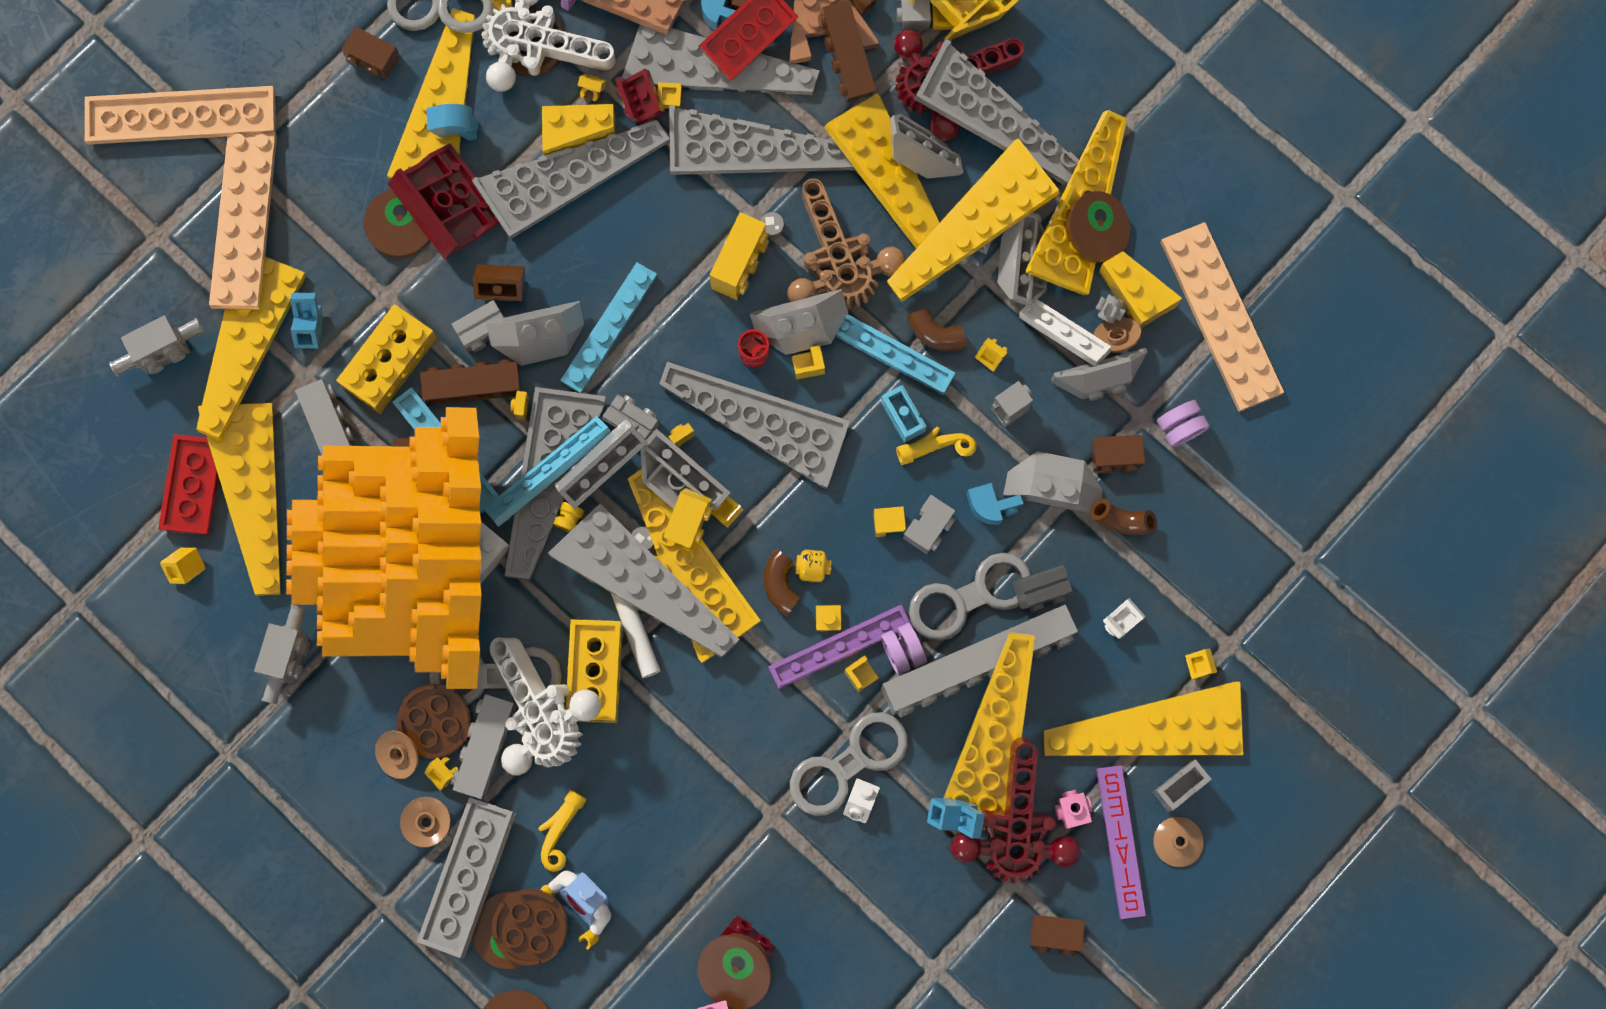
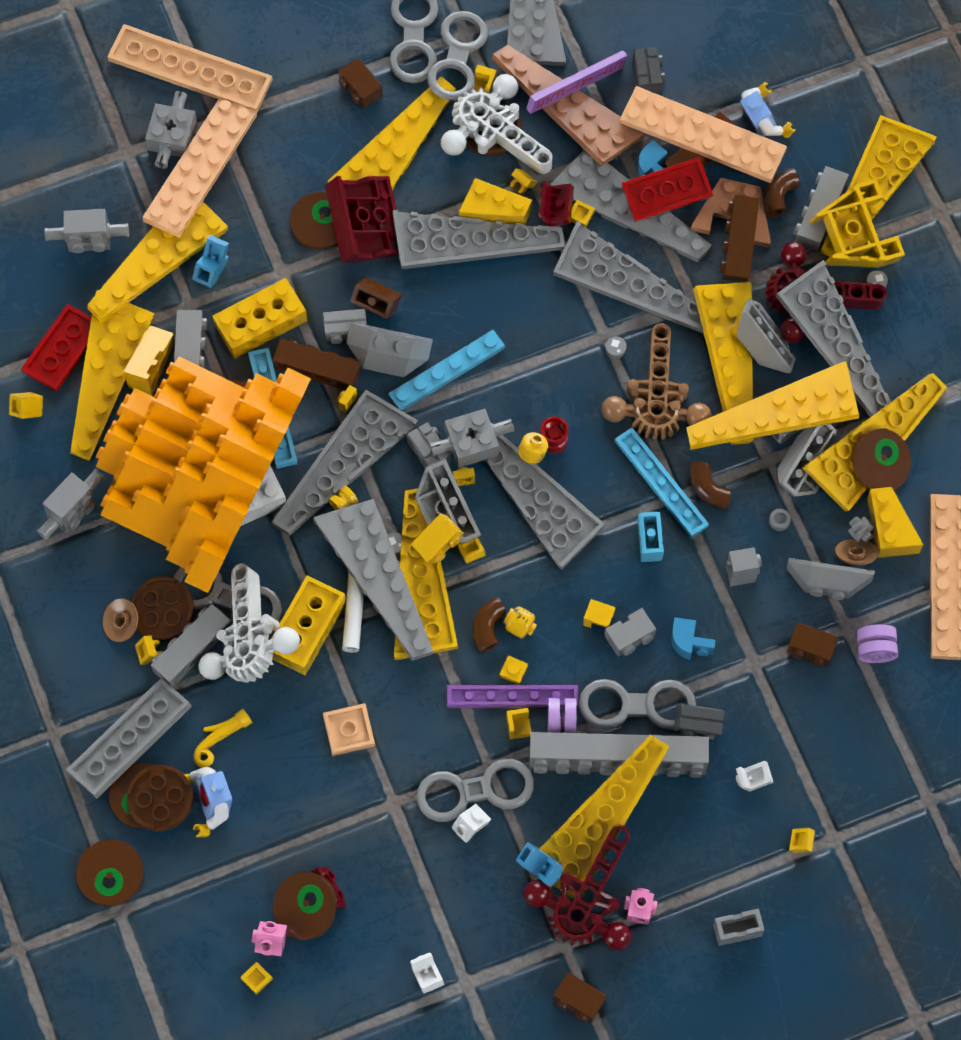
camera: 25 degrees right, 10 degrees down
(192, 193) = (170, 129): none -> light grey brick
(291, 457) = (149, 360): none -> yellow wedge
(412, 822) = (114, 672): medium nougat dish -> none
(451, 120) = (398, 158): dark azure brick -> none
(547, 471) = (344, 455): medium azure plate -> none
(600, 463) = (388, 466): light grey brick -> none
(668, 406) = (459, 441): none -> light grey brick
(689, 759) = (348, 729): none -> light nougat tile
(739, 256) = (576, 358): yellow brick -> none
(740, 374) = (533, 448): none -> yellow head
(803, 322) = (603, 431): light grey wedge -> none
(809, 363) = (593, 467): yellow panel -> none
(891, 981) = (426, 973): none -> white bracket
(930, 443) = (663, 571): yellow plant -> none
(991, 354) = (745, 522): yellow tile -> none
(1003, 32) = (877, 277): none -> light grey tile
(1022, 334) = (779, 519): none -> light grey tile
(1054, 482) = (750, 646): light grey wedge -> none
(1065, 332) = (813, 530): white plate -> none
(1120, 842) = (667, 952): medium lavender tile -> none
(1123, 520) = (790, 699): reddish brown cylinder -> none
(1165, 841) = (716, 985): medium nougat dish -> none
(1184, 725) = (762, 883): yellow wing -> none

